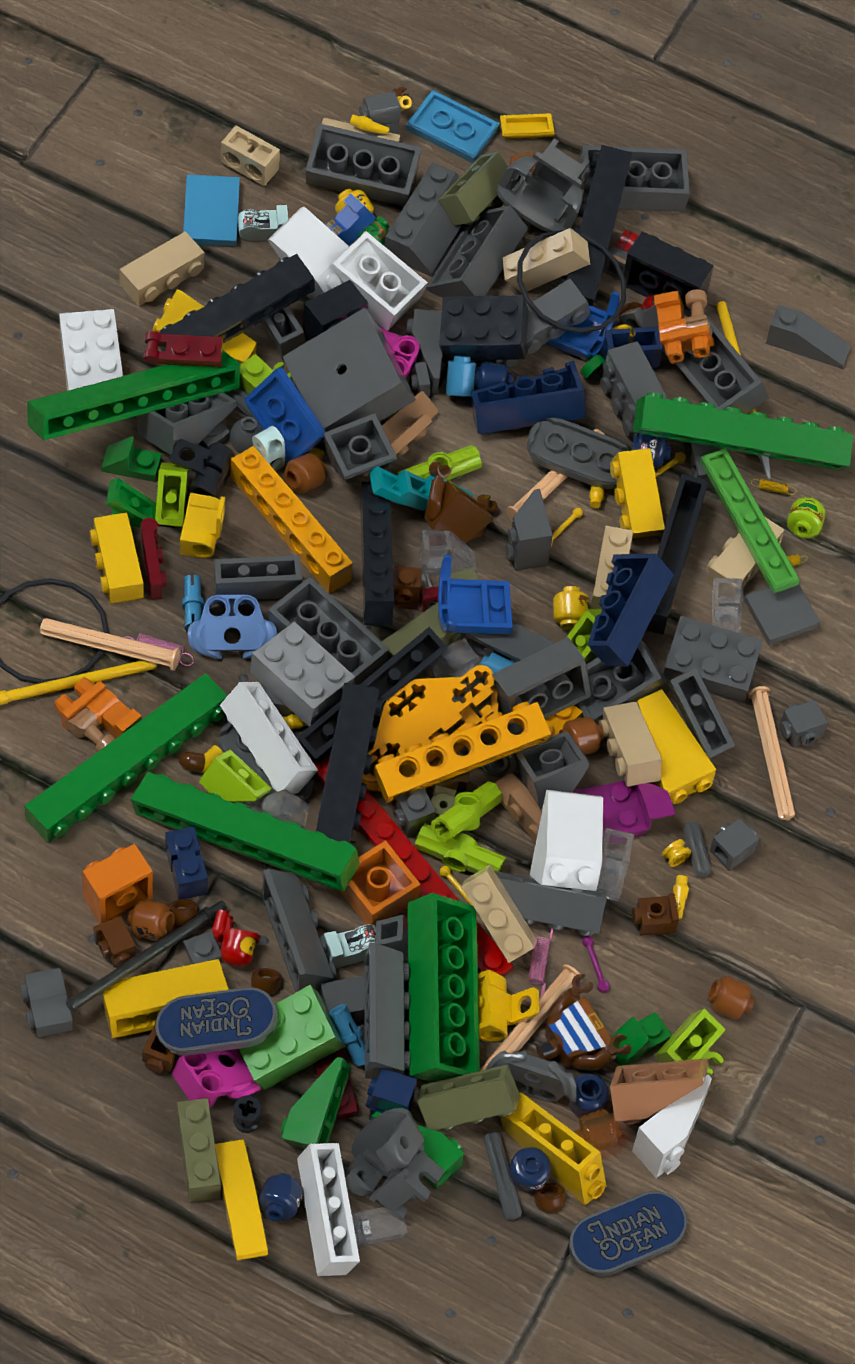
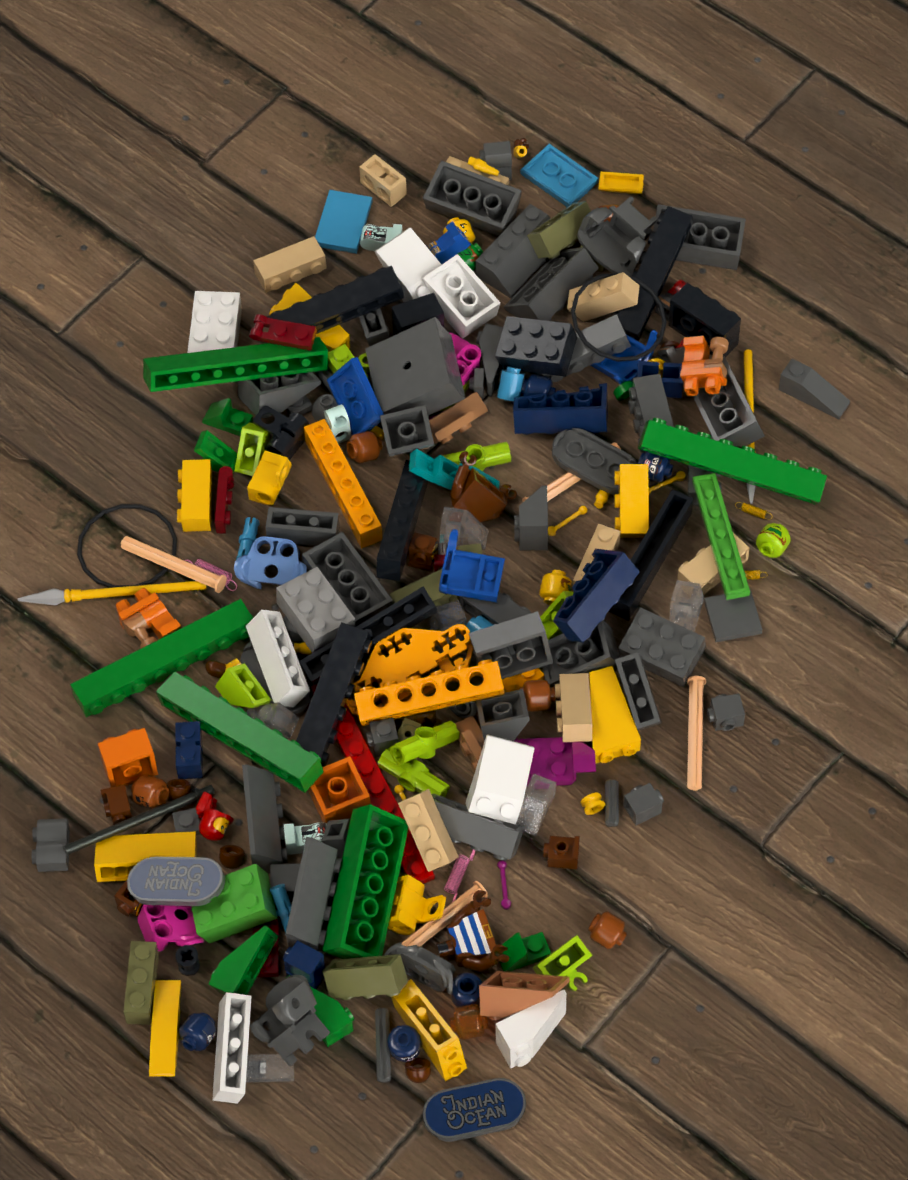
camera: 20 degrees right, 0 degrees up
(681, 891) = (588, 838): yellow piece -> none

